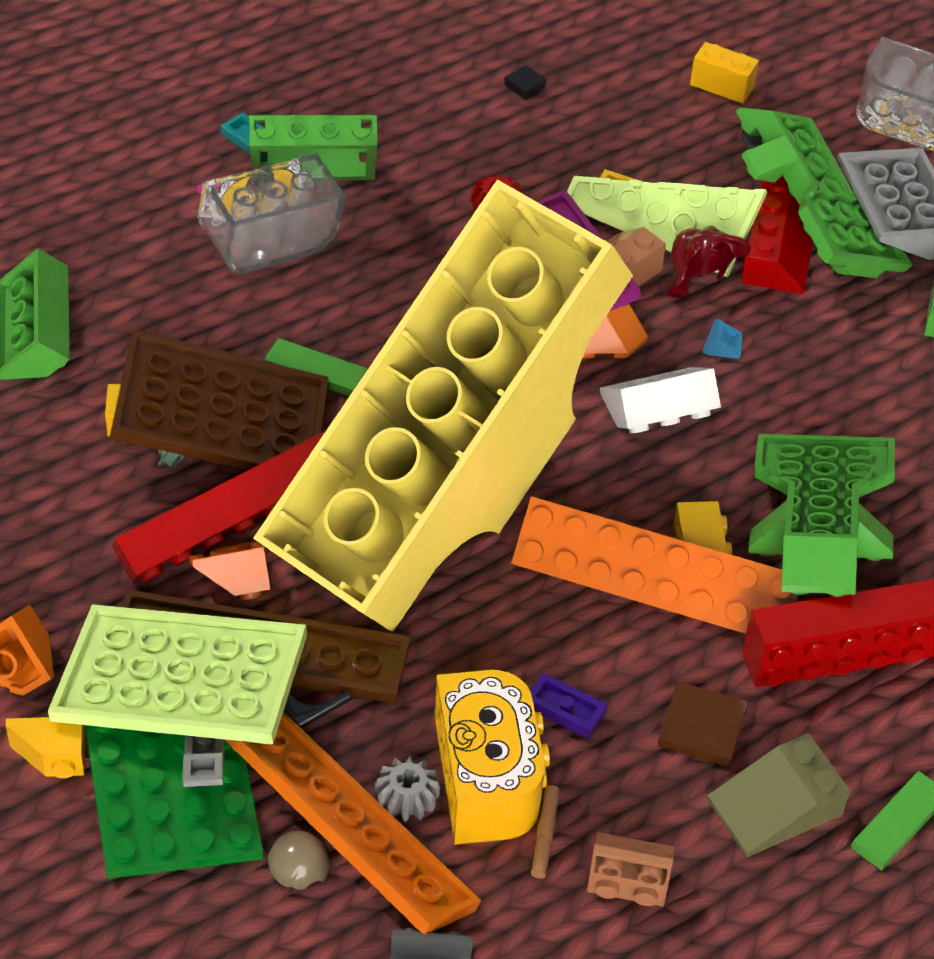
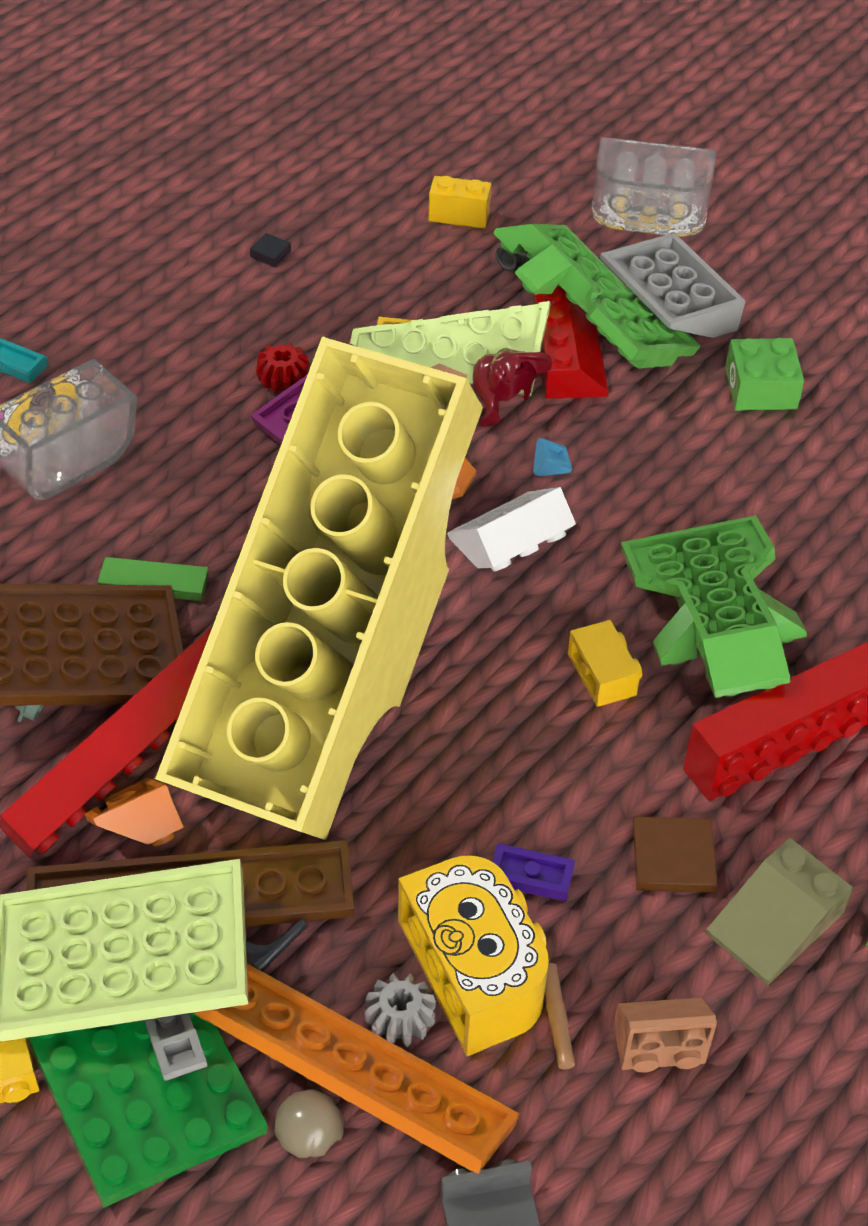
camera: 15 degrees left, 0 degrees up
(333, 137) = (105, 338): bright green window -> none
(646, 566) = (565, 704): orange plate -> none

